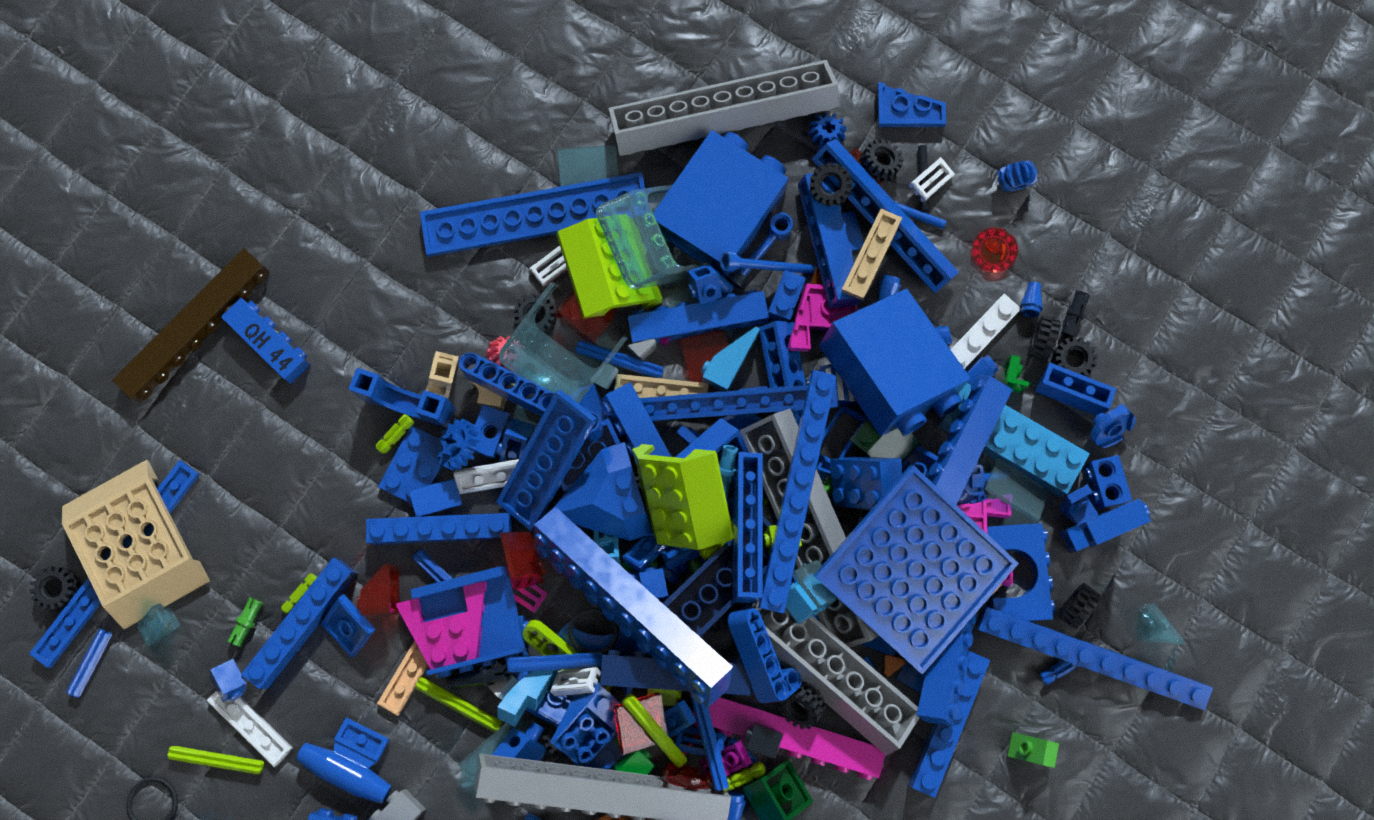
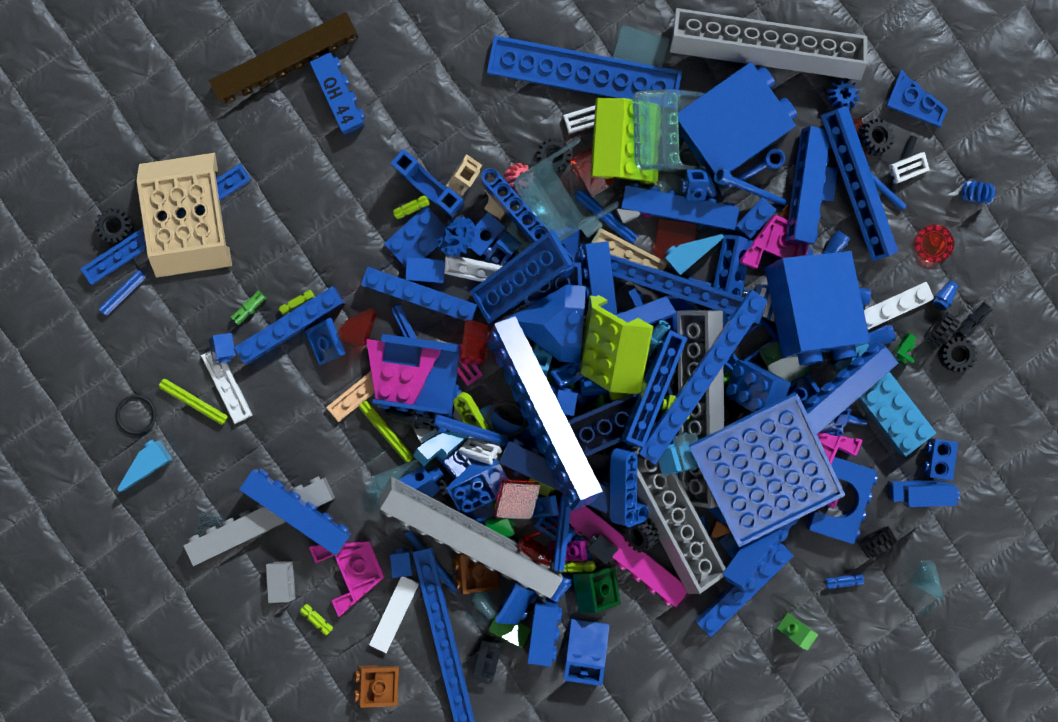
camera: 15 degrees right, 10 degrees up
(157, 624) = (182, 283): clear light blue slope -> none
(349, 764) = (290, 443): blue plate -> none
(654, 730) = (525, 509): lime axle -> none
(830, 170) = (824, 132): black tyre -> none
(871, 254) = (835, 213): tan plate -> none
(1017, 490) = (869, 437): clear light blue piece -> none
(1075, 389) = (947, 379): blue brick -> none
(1078, 506) = (910, 469): blue slope -> none
(1094, 658) = (871, 583): blue plate -> none
(1111, 426) = (961, 418): blue plate -> none

